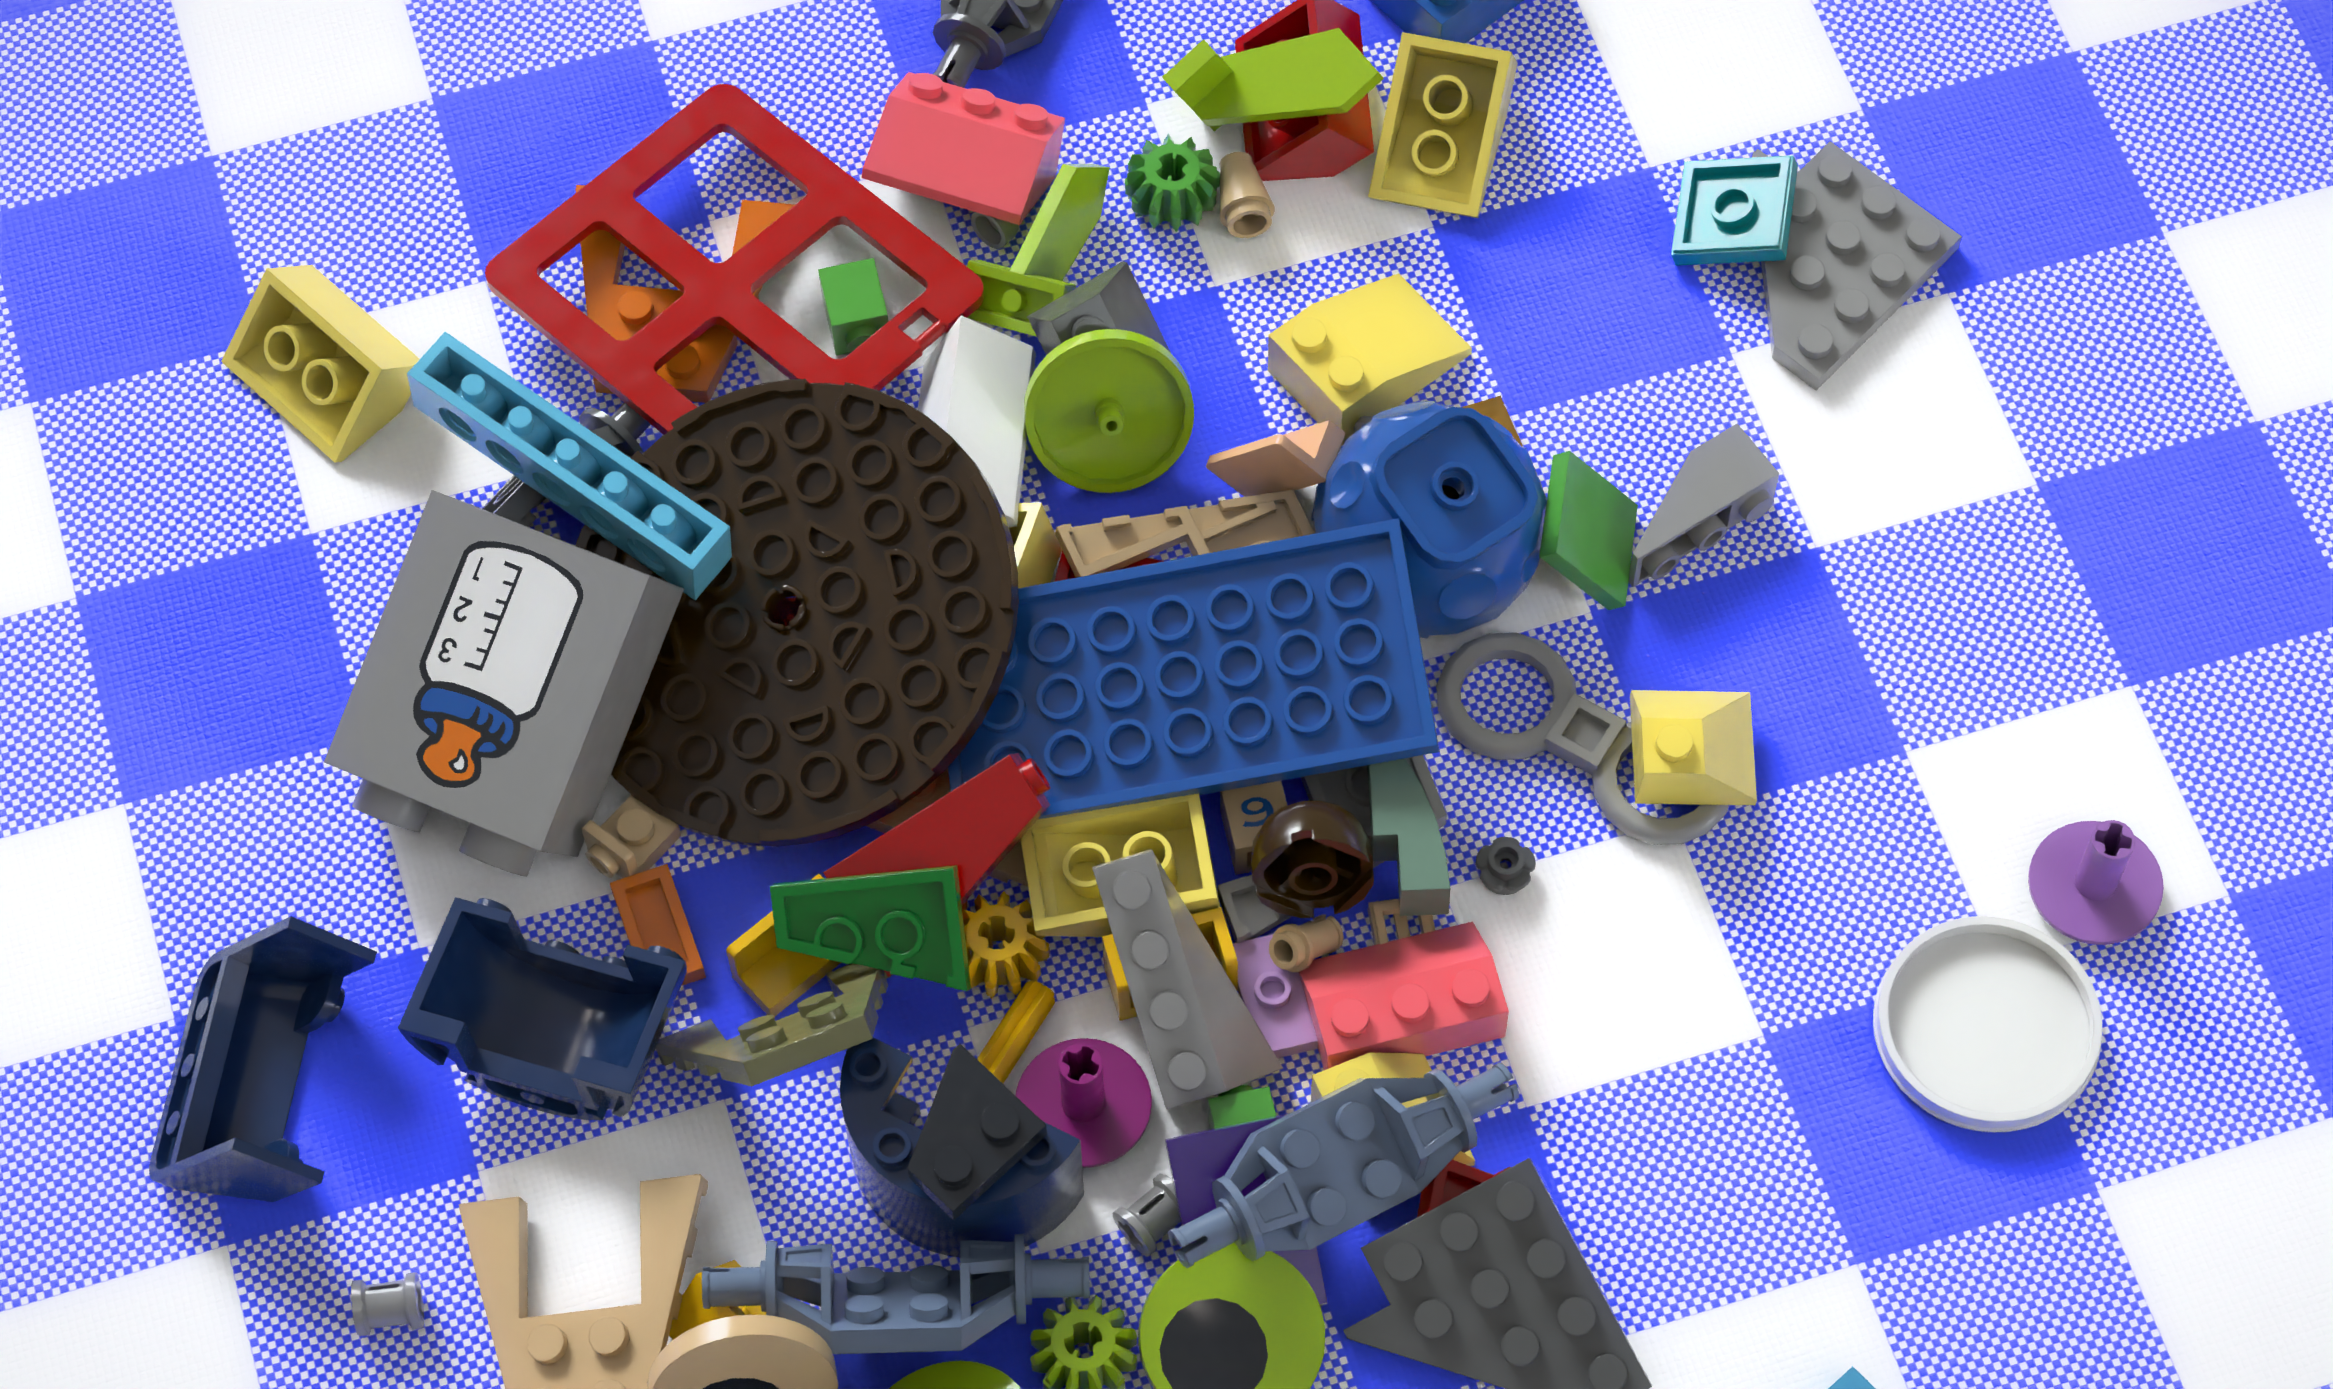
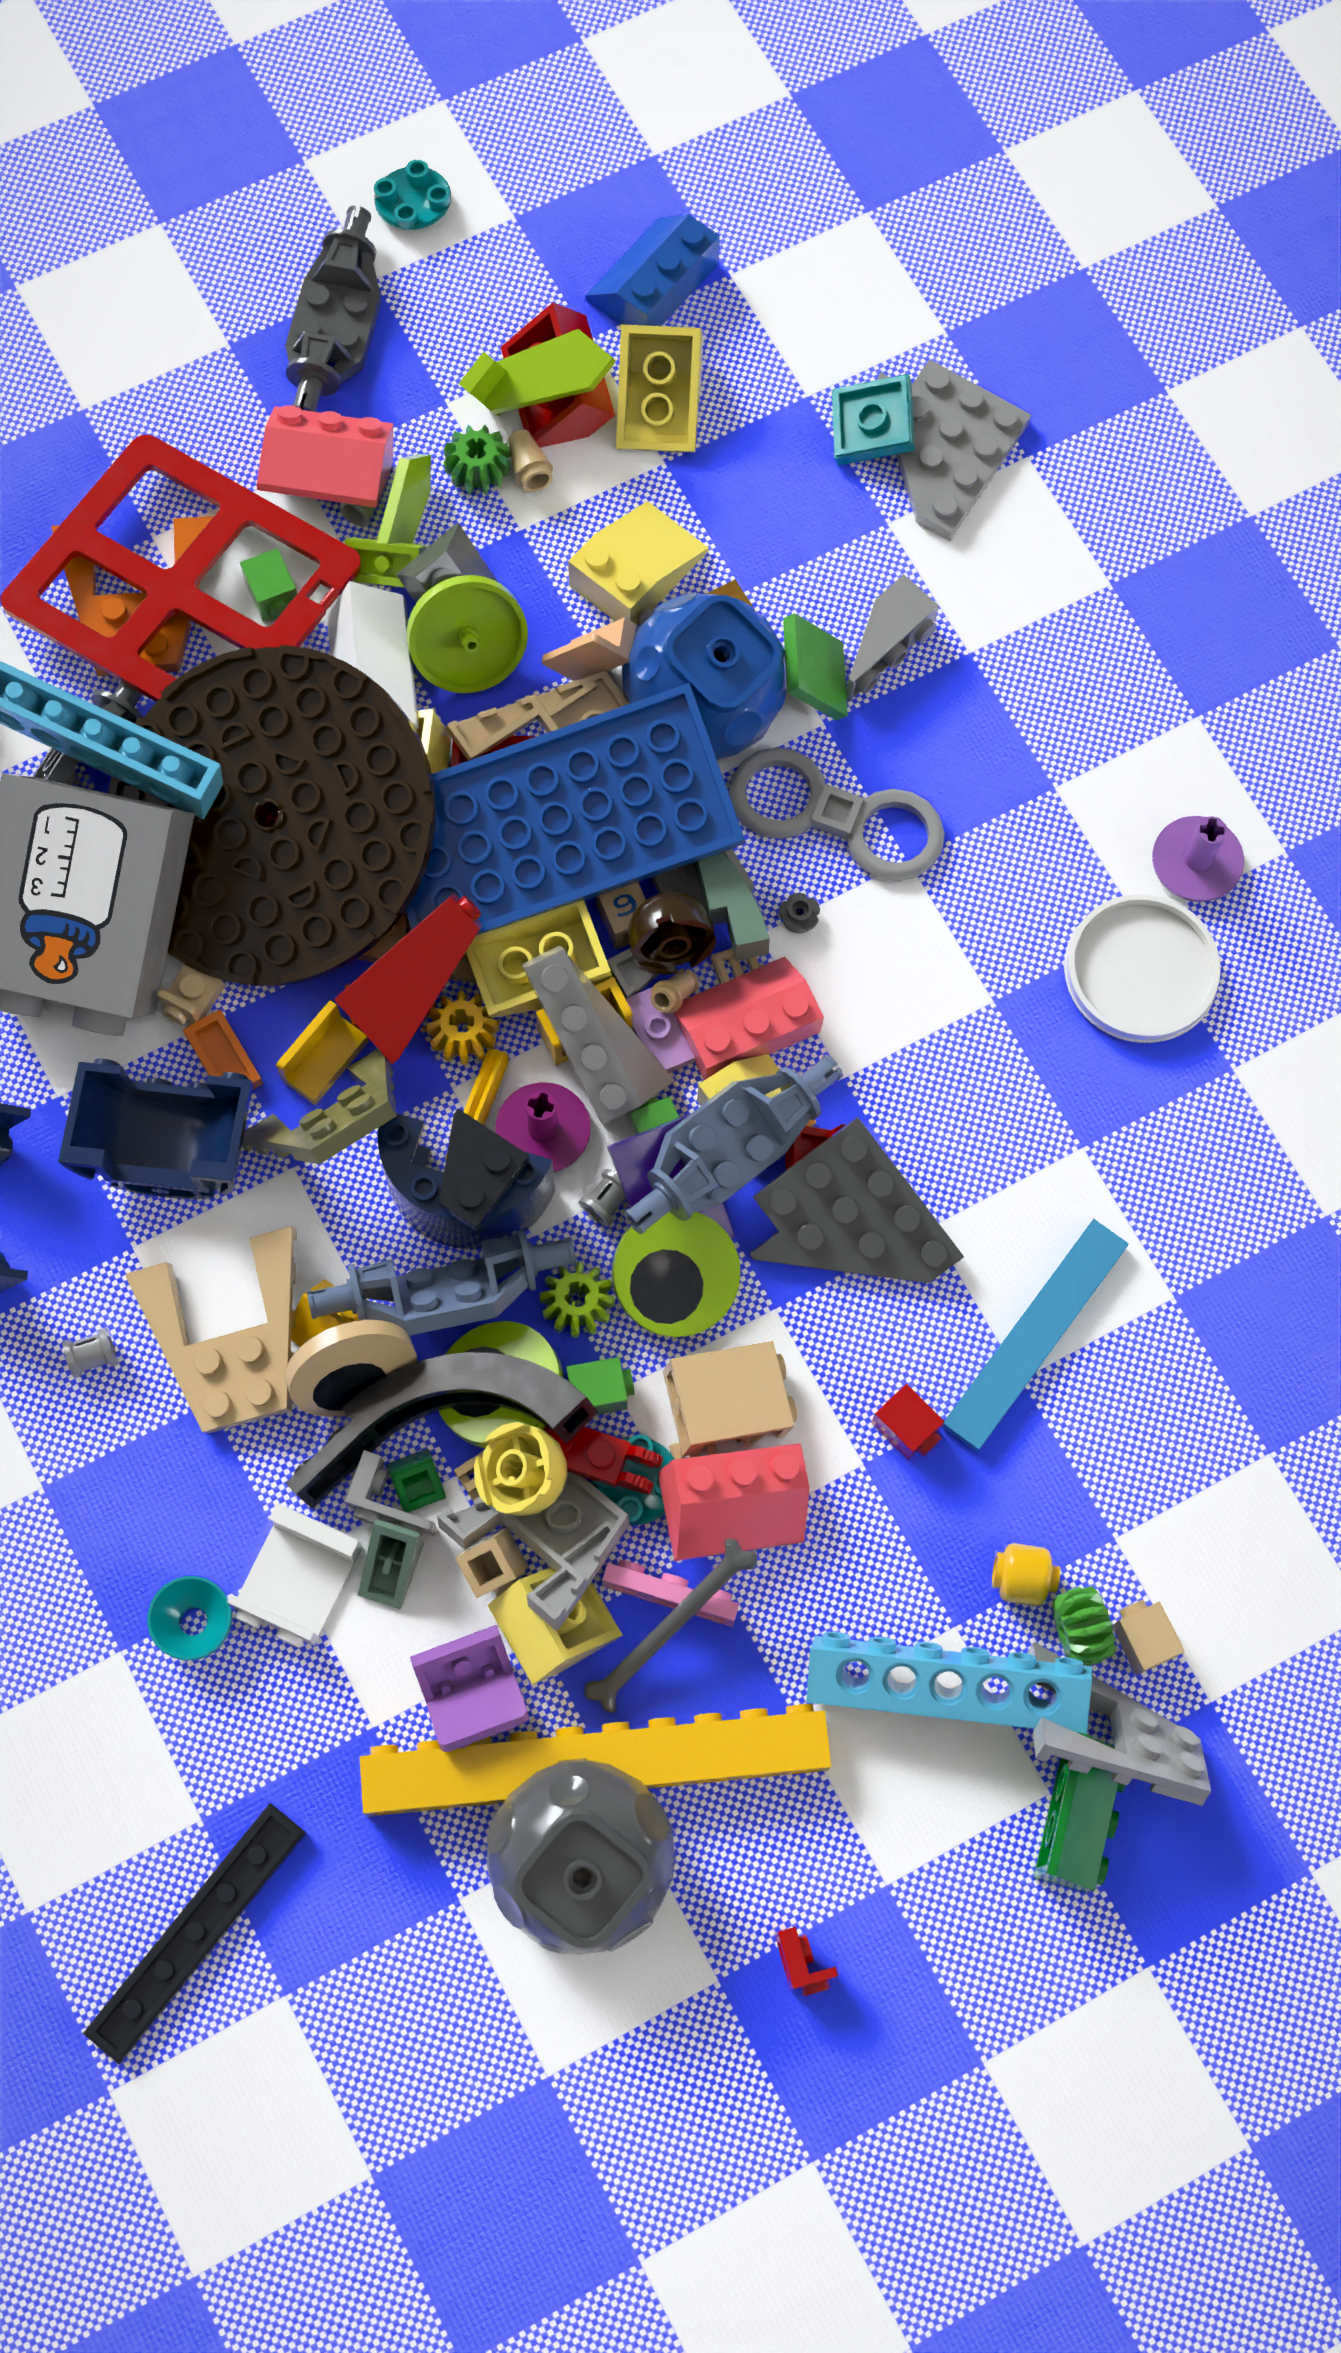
camera: 15 degrees left, 10 degrees up
(879, 920) = (382, 1026): green wing -> none
(1693, 747) = (912, 809): light yellow slope -> none

